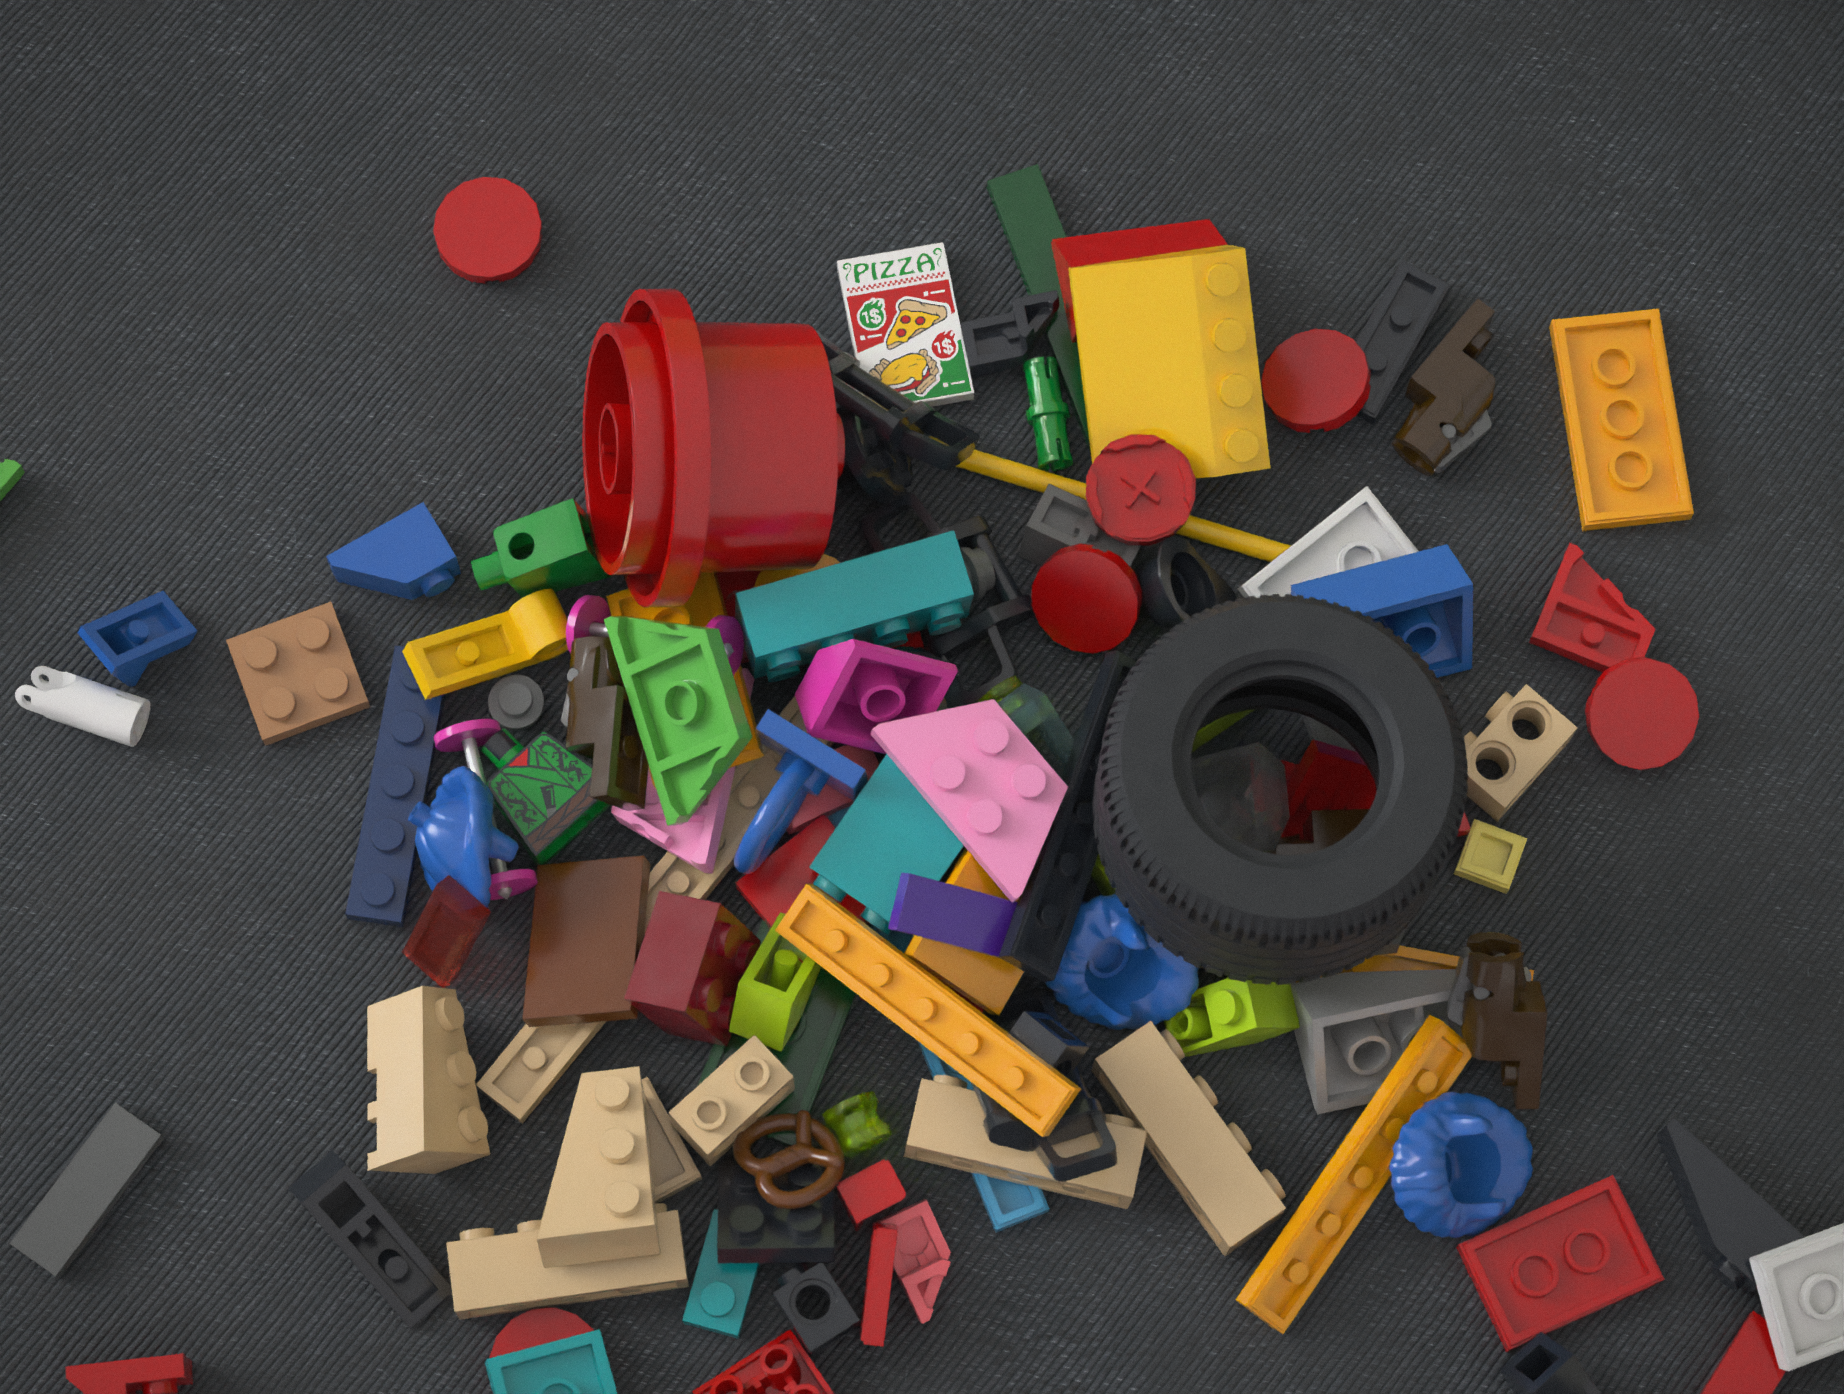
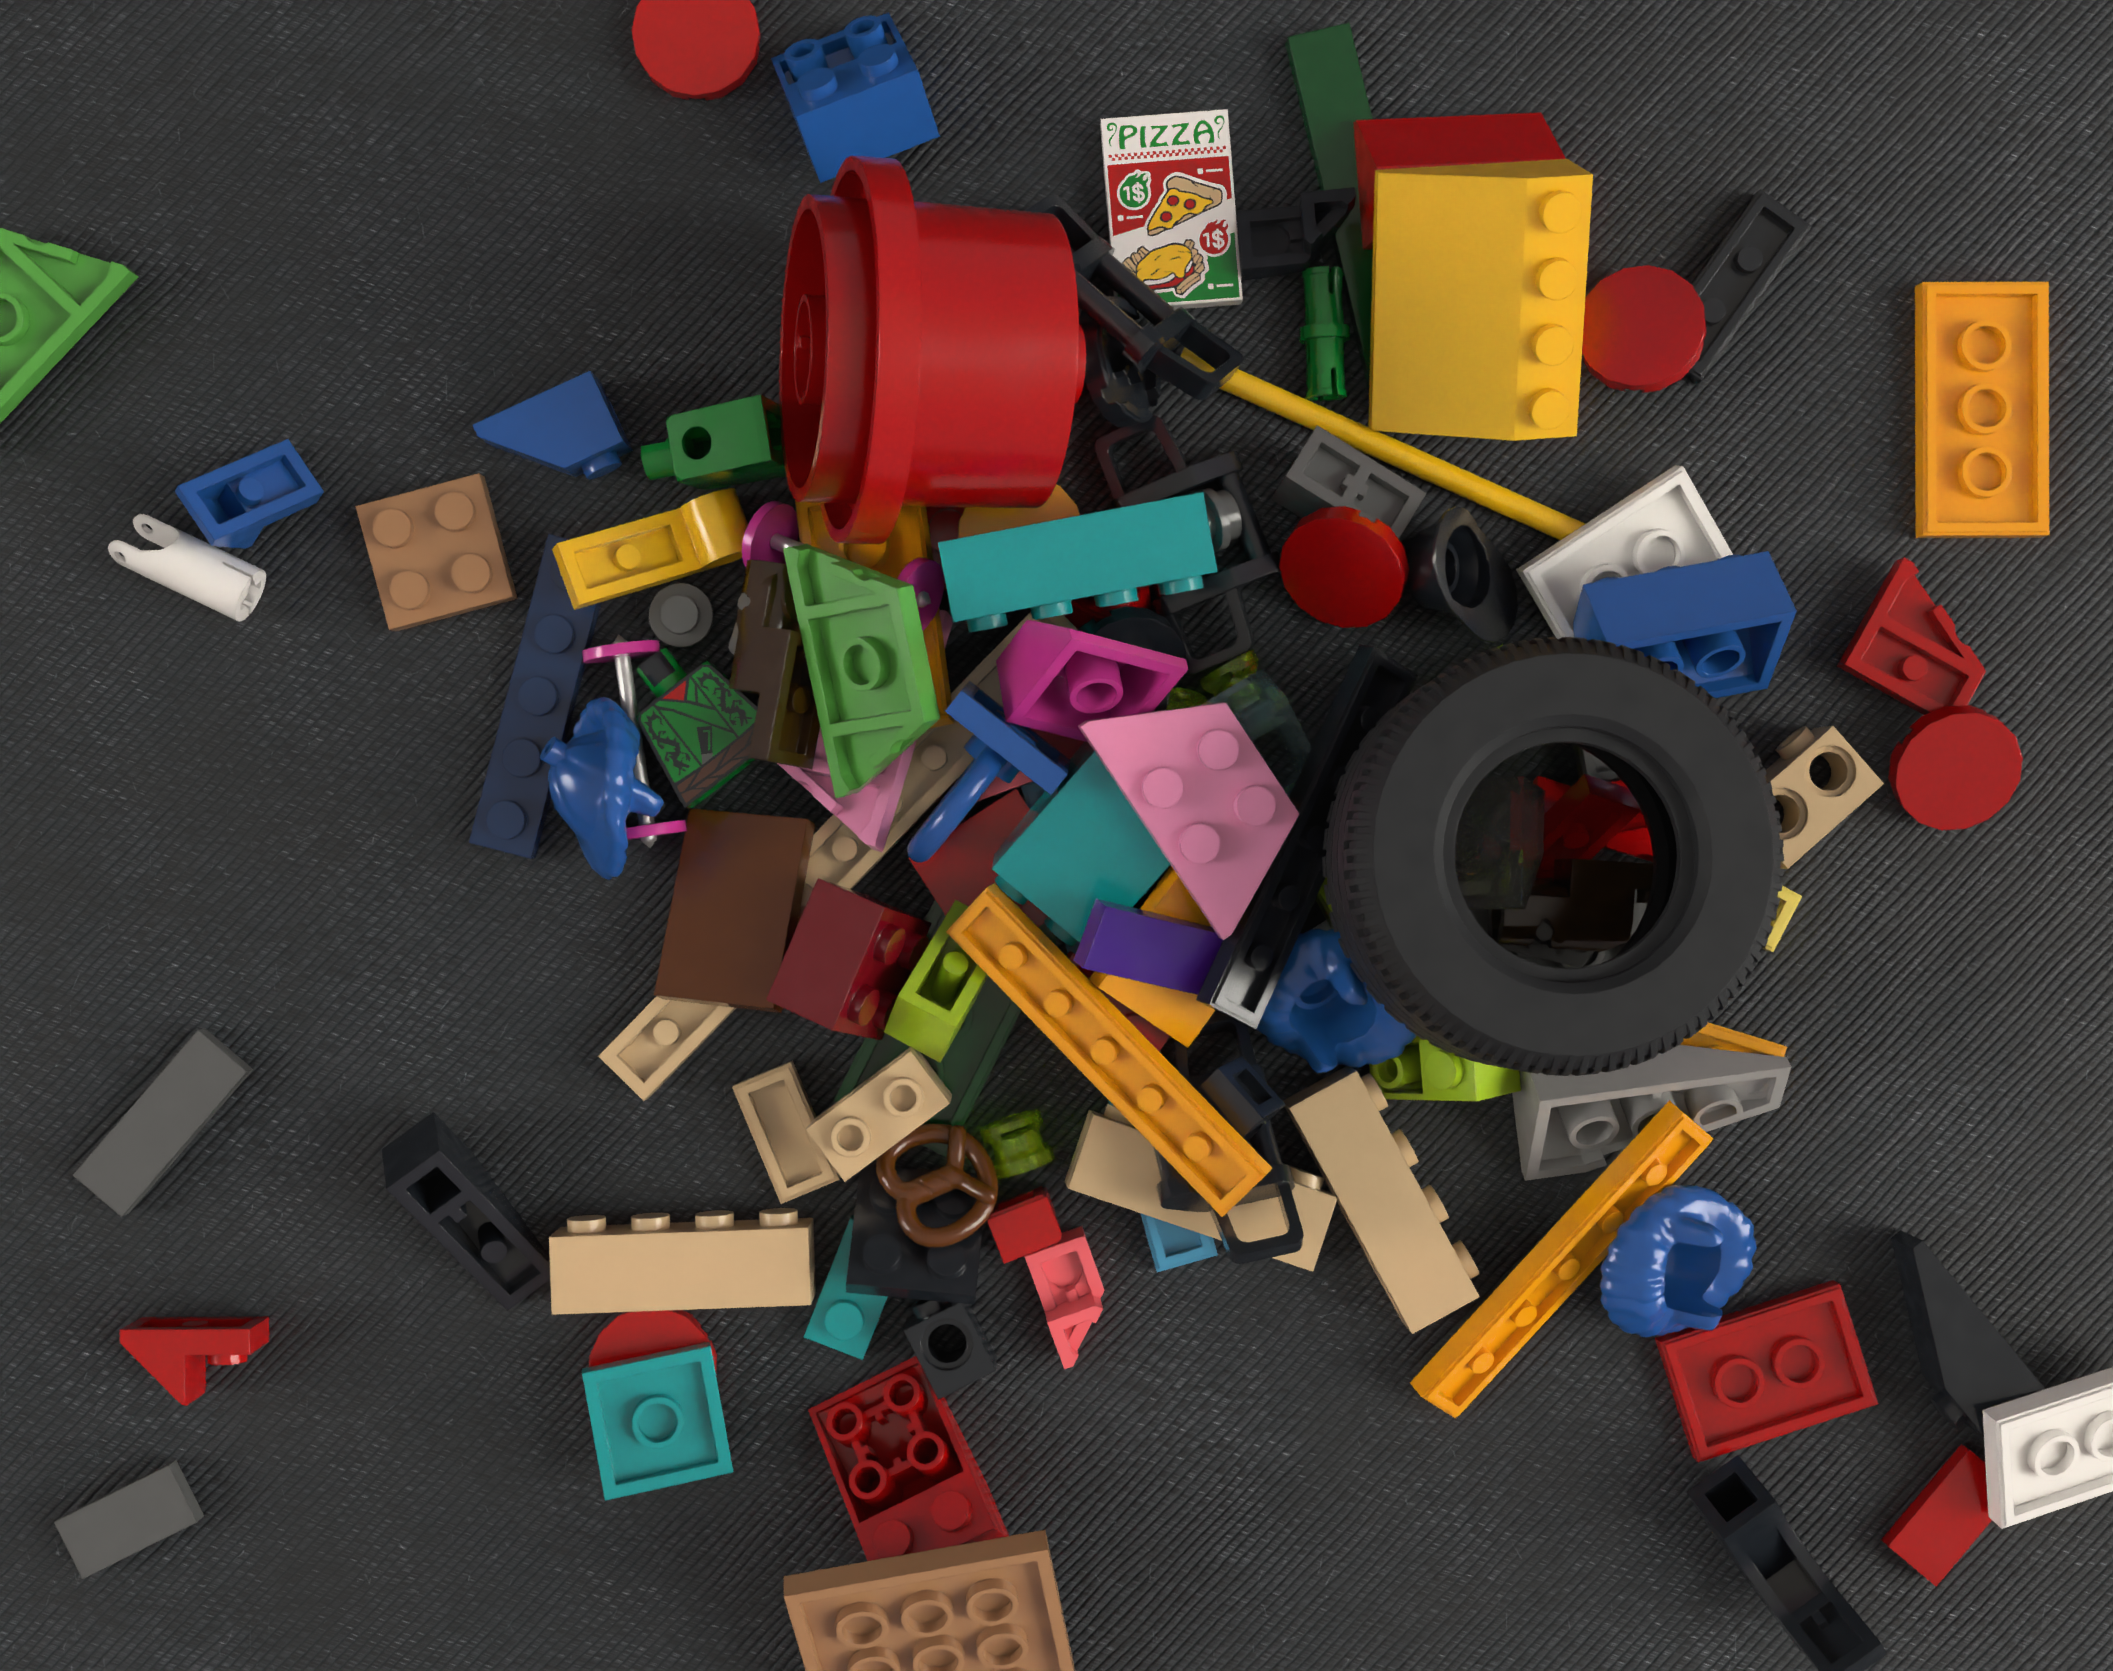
camera: 10 degrees right, 15 degrees up
(425, 1084) = (538, 1057): tan wedge -> none
(446, 931) = (576, 883): clear red tile -> none
(603, 1178) = (728, 1189): tan wedge -> none
(625, 253) = (855, 94): none -> blue slope
(878, 1284) = (1021, 1327): red tile -> none
(1140, 490) = (1424, 448): red tile -> none
(1449, 397) = (1792, 365): dark brown plate -> none
(1501, 1012) = (1754, 1114): dark brown plate -> none

